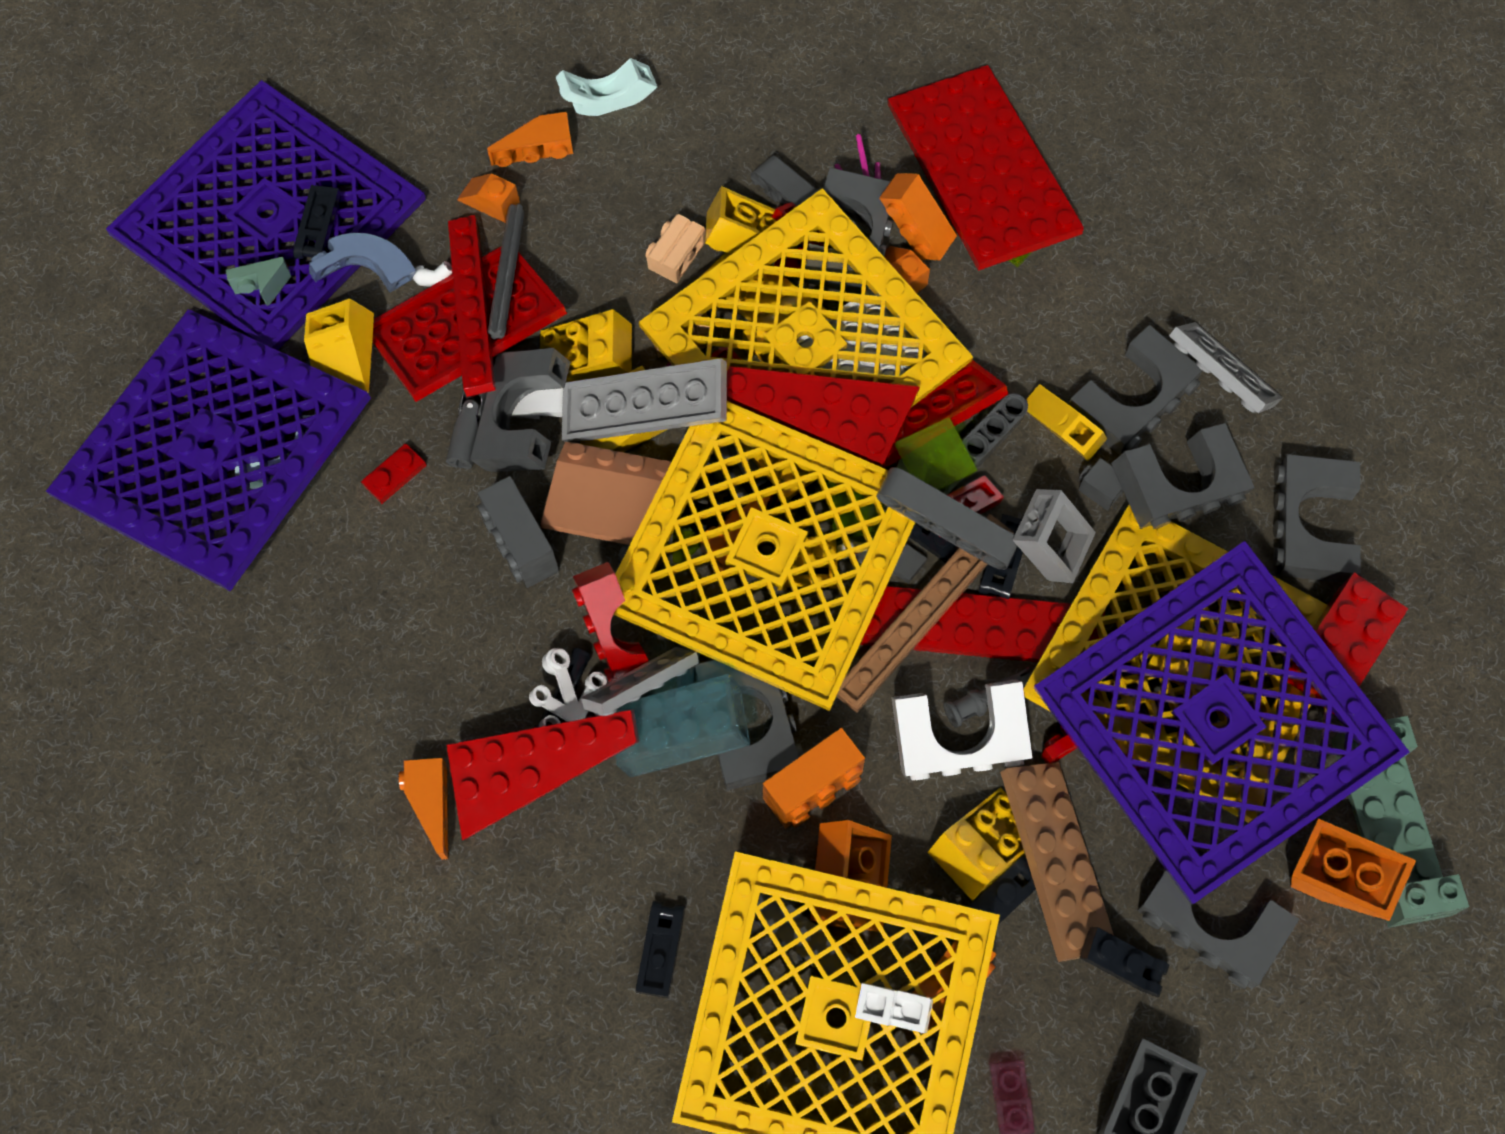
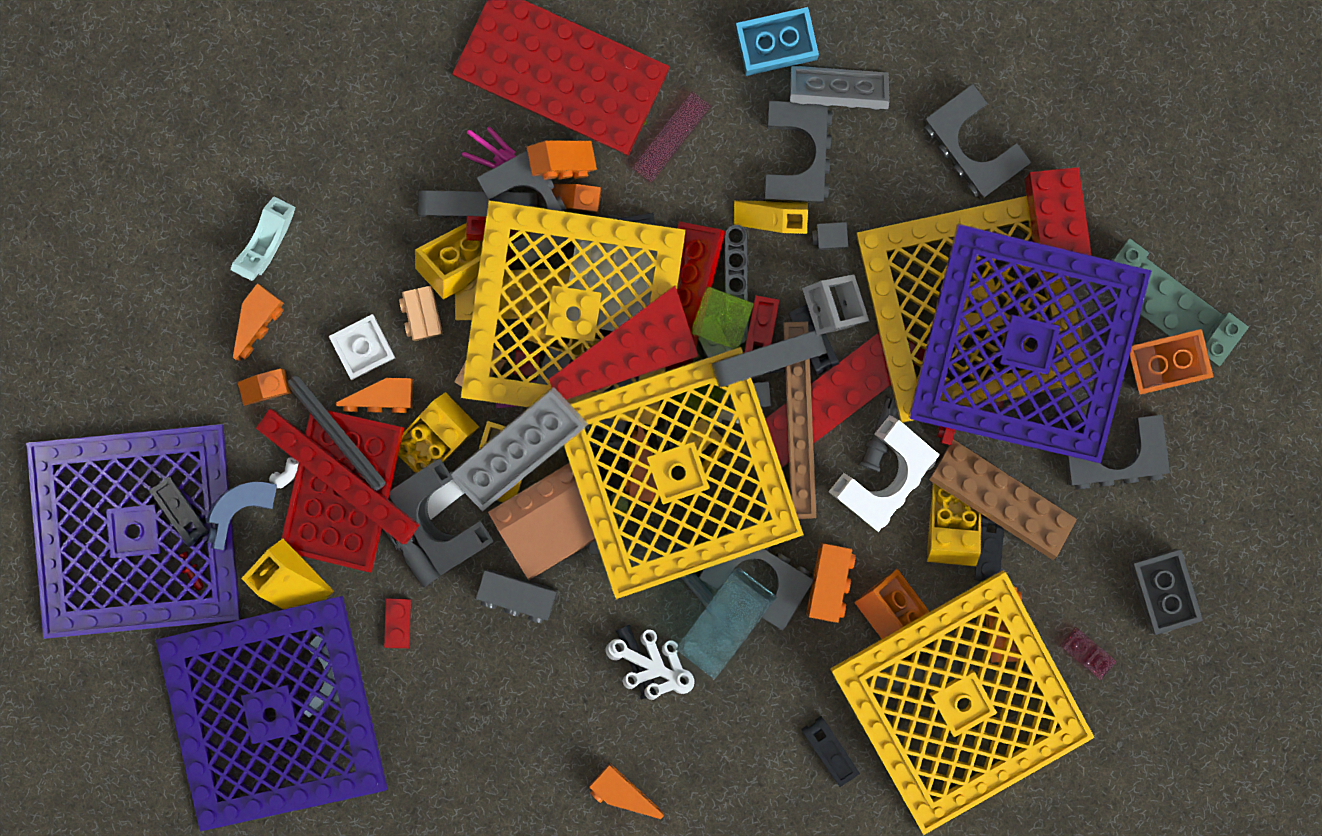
camera: 45 degrees left, 20 degrees up
(266, 276) = (189, 576): sand green slope -> none
(517, 768) = (659, 731): red wing -> none
(577, 280) = (387, 393): none -> orange slope
(599, 233) = (362, 347): none -> white plate
(601, 597) = (619, 598): red arch -> none
(639, 681) = (682, 621): light grey plate -> none
(894, 1008) = (991, 672): white slope -> none
(1031, 292) = (671, 137): none -> clear pink tile
(1123, 961) = (1086, 526): black plate -> none
(1158, 501) = (901, 171): dark grey arch -> none
(1200, 287) = (776, 41): none -> medium azure brick

